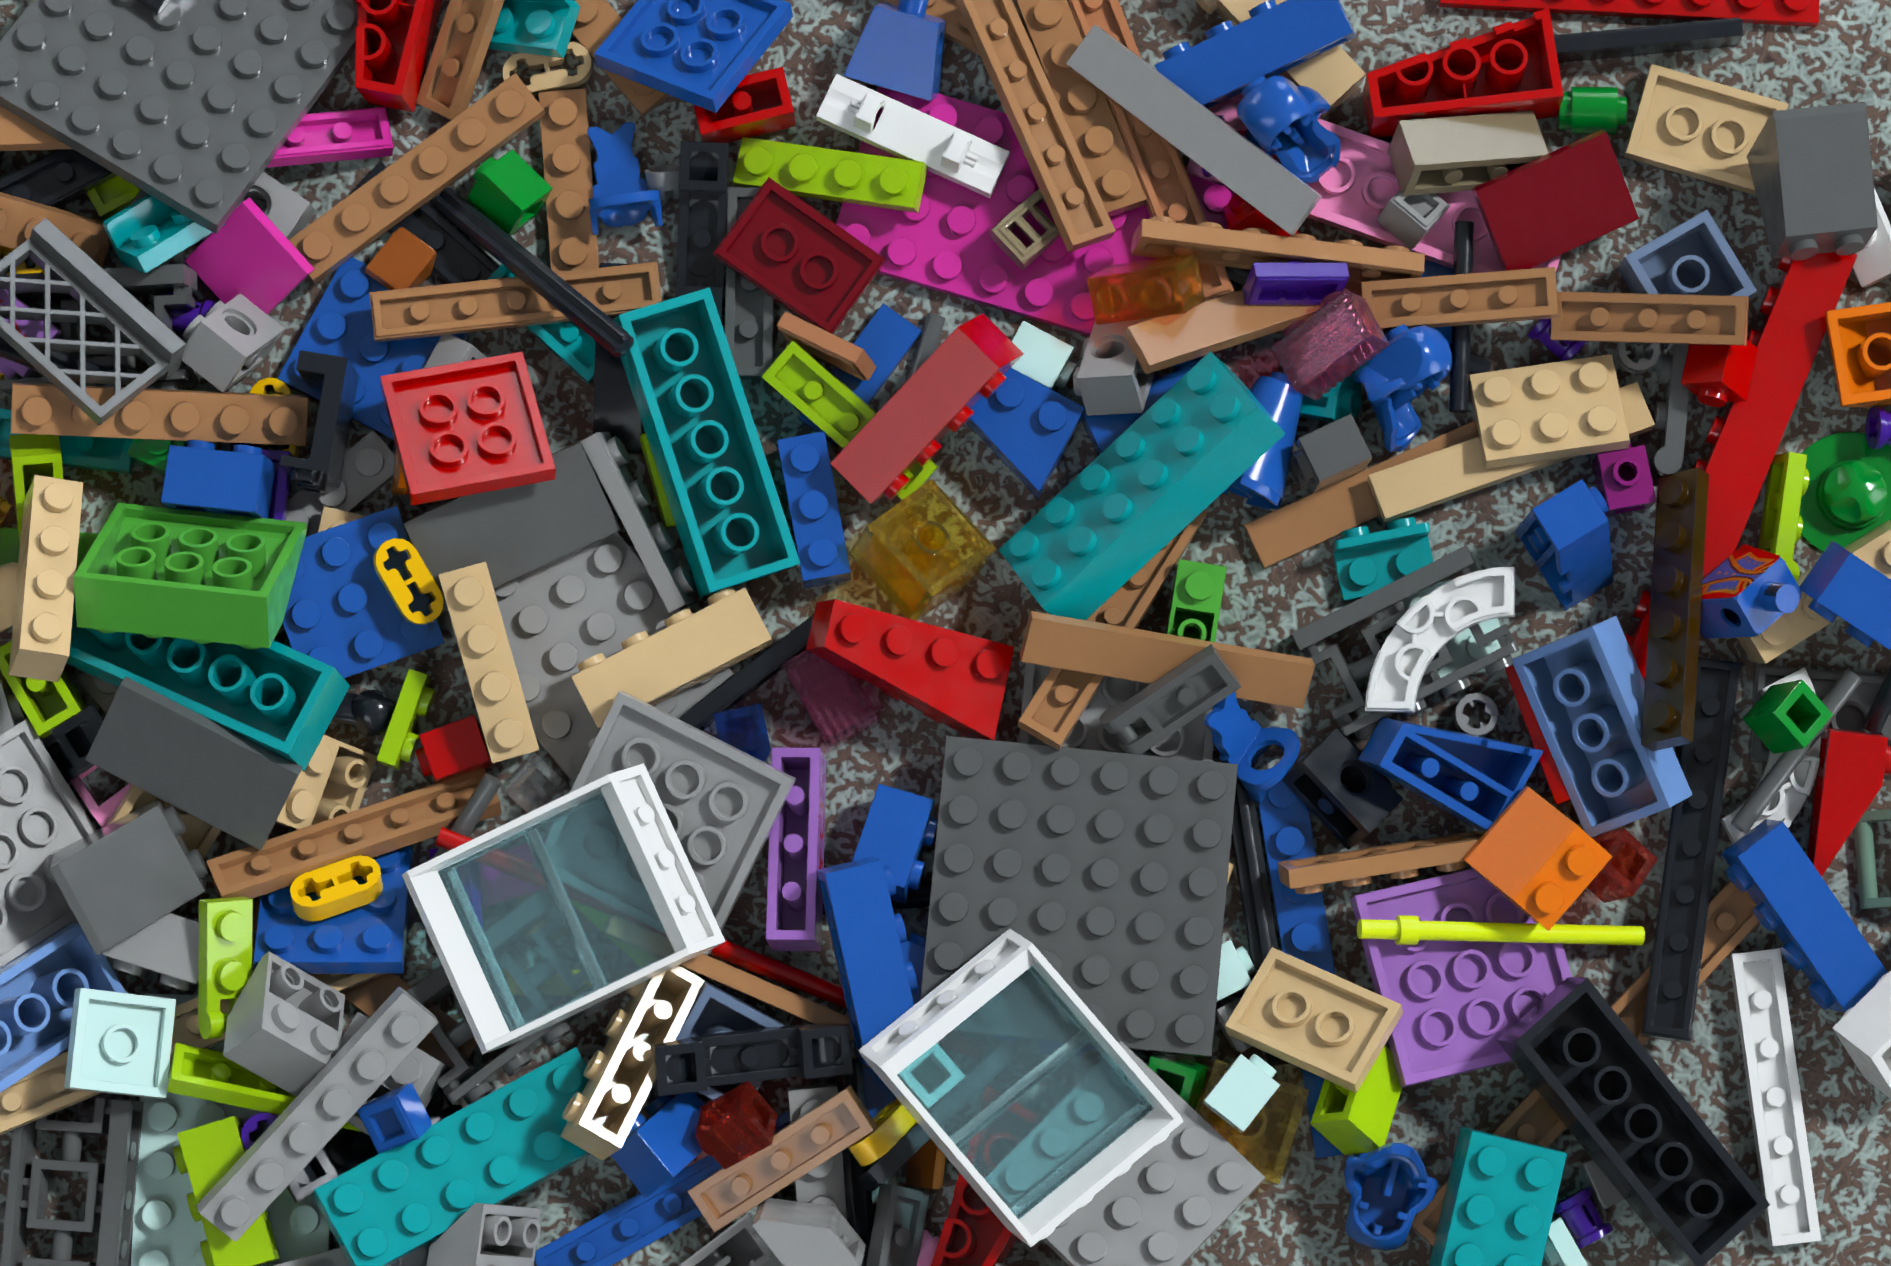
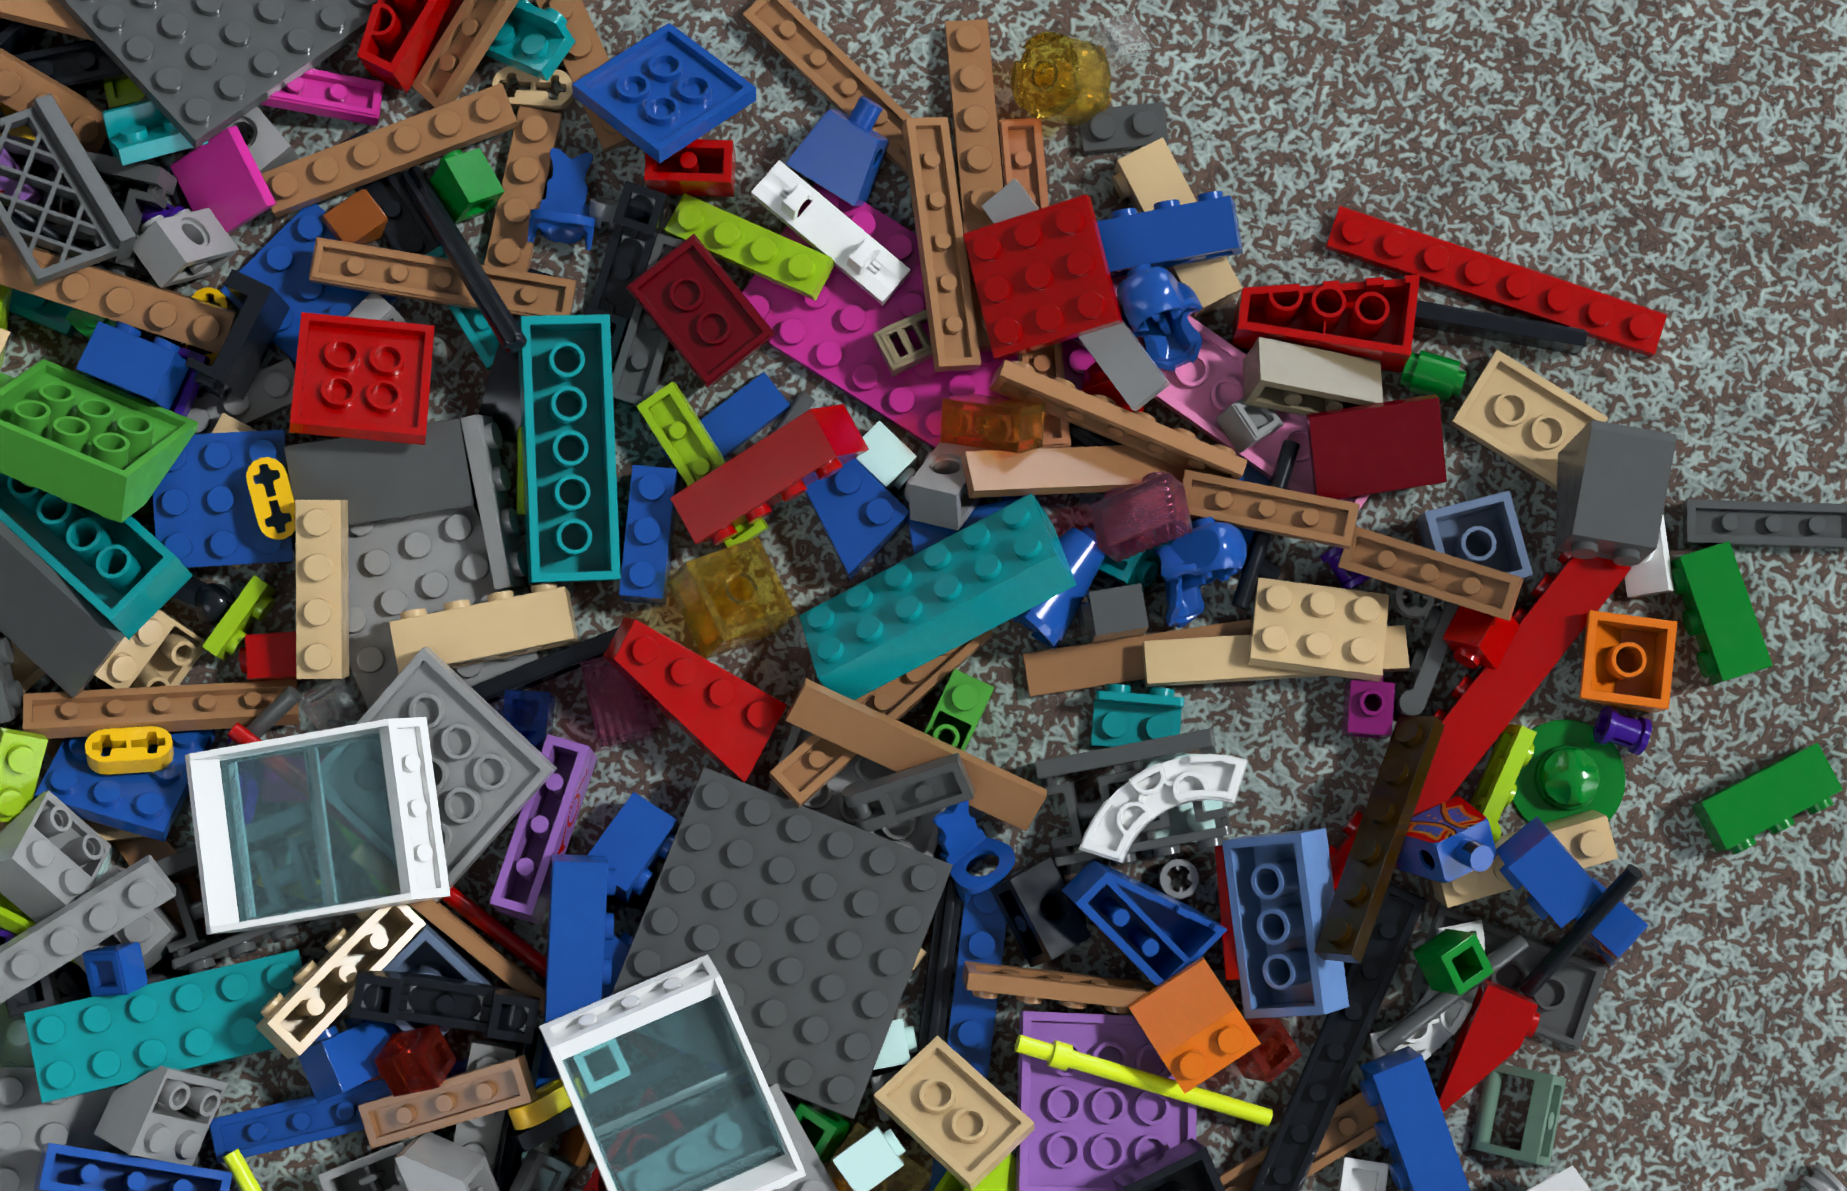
camera: 15 degrees right, 0 degrees up
(827, 346) = (701, 395): nougat tile -> none
(1154, 121) = (1042, 278): none -> red plate
(1293, 282) = (1124, 453): dark purple plate -> none
(1570, 543) = (1304, 751): blue wedge -> none

